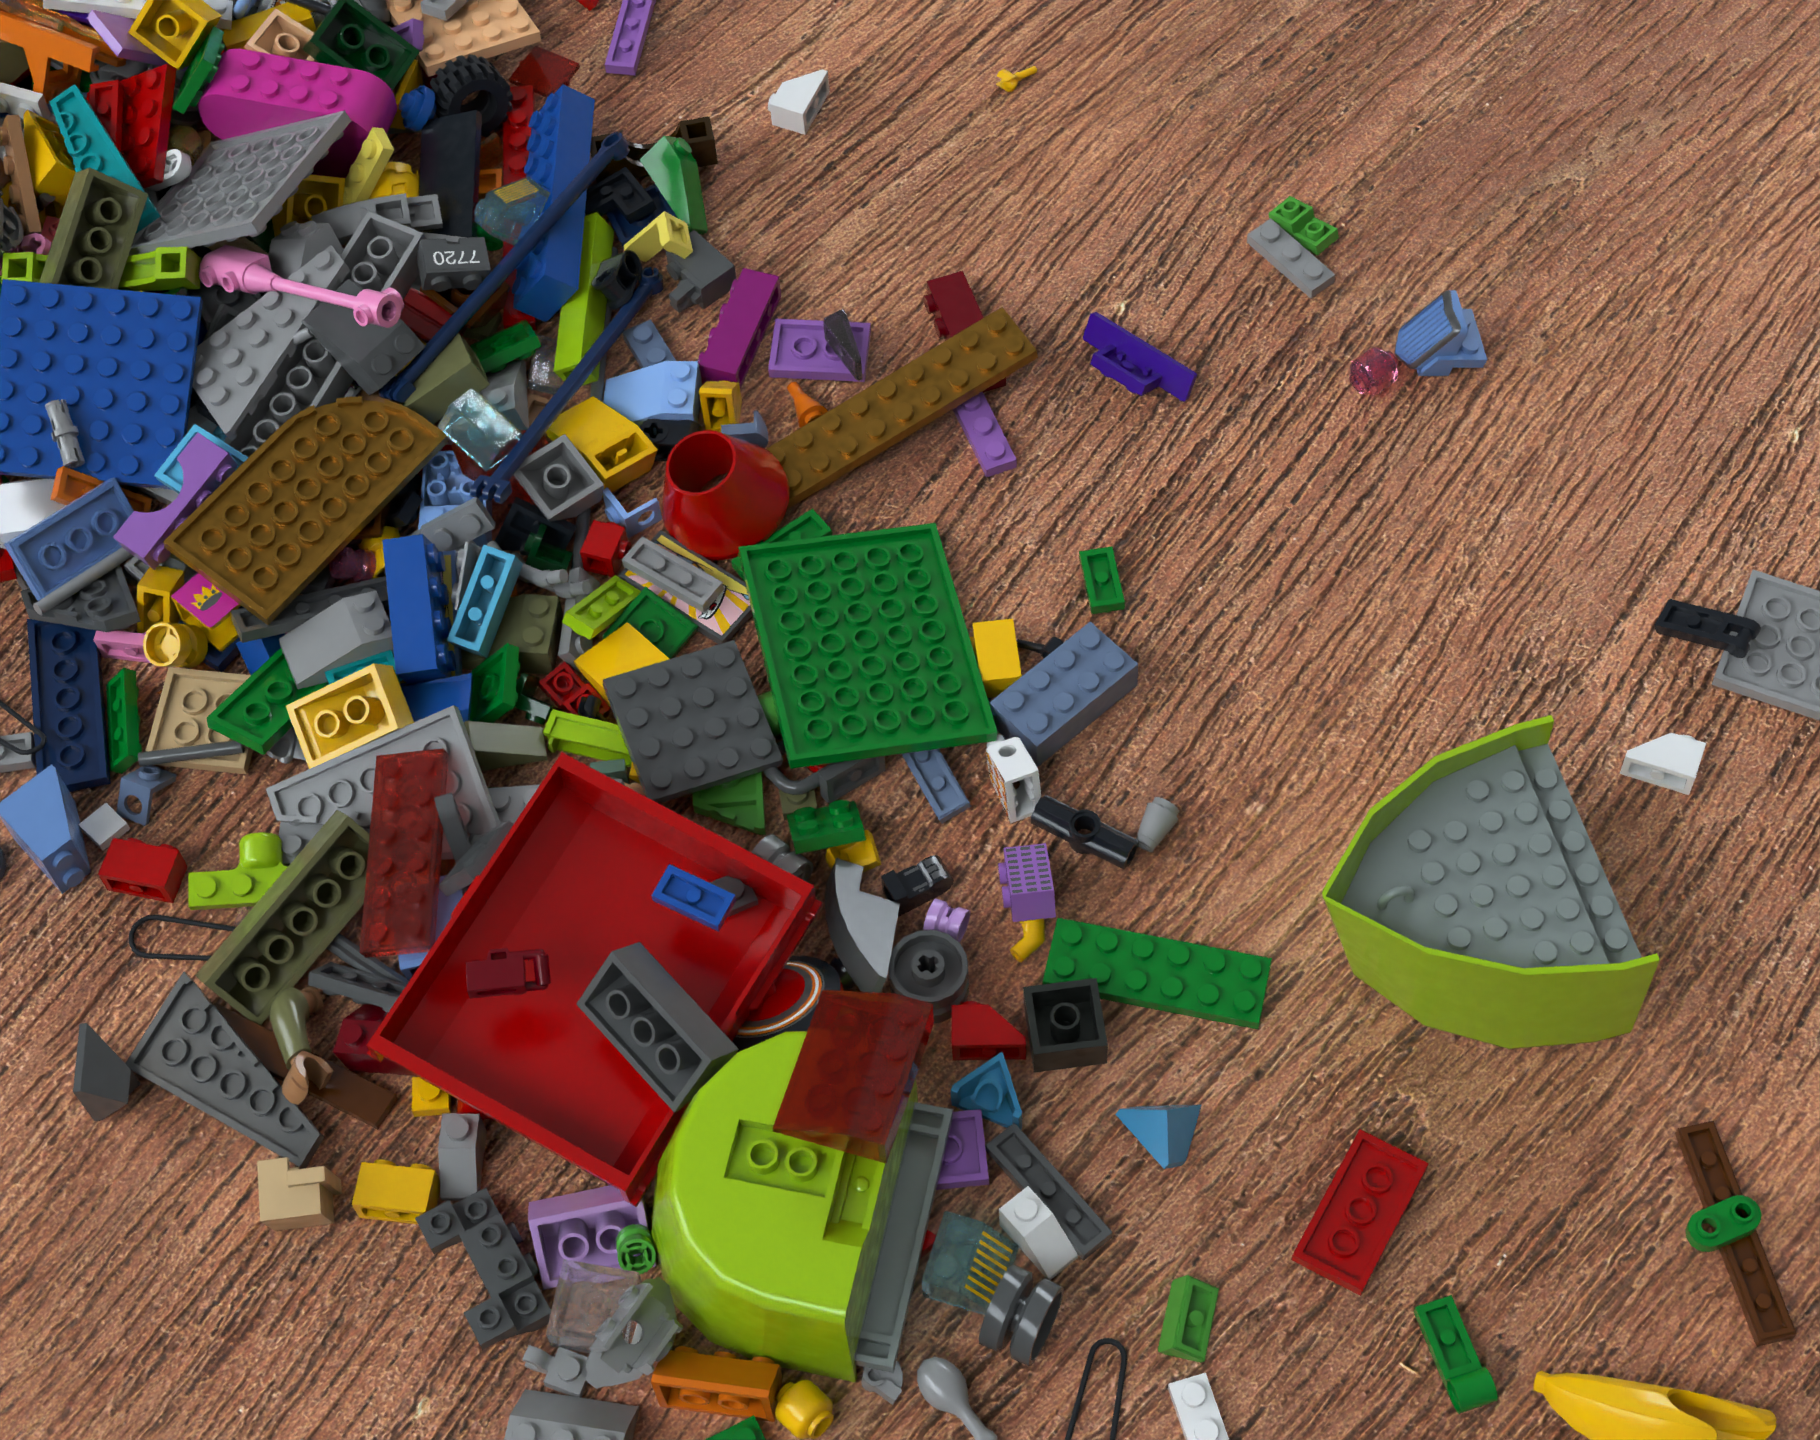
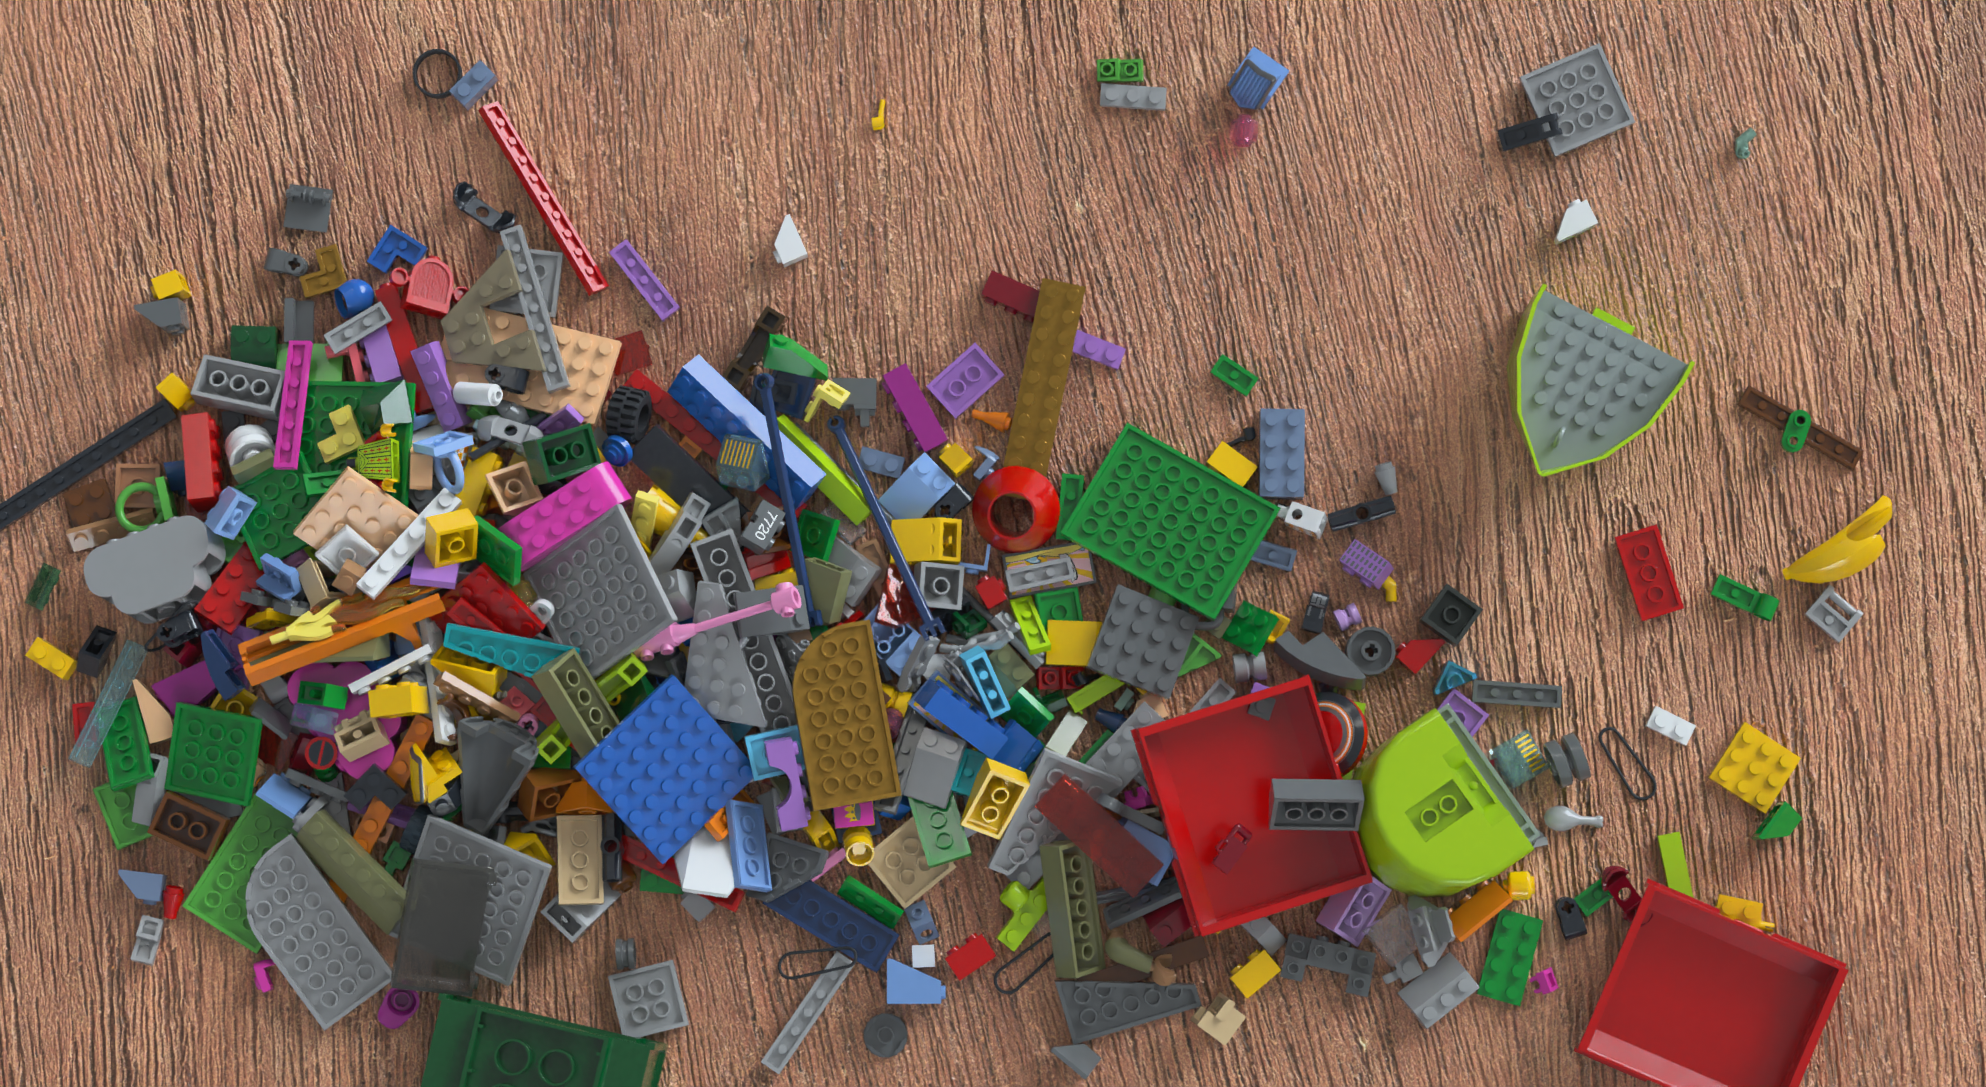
camera: 50 degrees left, 25 degrees up
(64, 433) = (691, 806): light grey pin -> none
(81, 581) = (772, 854): light grey bar -> none
(190, 753) = (922, 890): dark grey bar -> none
(474, 859) = (1142, 807): dark grey tile -> none
(479, 429) = (884, 599): clear light blue slope -> none
(618, 278) = (825, 443): black piece -> none
(632, 1241) = (1385, 894): bright green wheel -> none
(693, 897) = (1269, 735): blue plate -> none
(841, 340) = (979, 369): clear smoke slope -> none
(856, 1071) = (1431, 746): clear red slope -> none
(1037, 1233) = (1531, 717): white slope -> none
(1135, 361) = (1124, 239): dark purple bracket -> none
(1161, 972) = (1458, 548): green plate -> none
(1163, 1130) = (1534, 618): dark azure slope -> none
(1188, 1319) = (1625, 689): bright green slope -> none

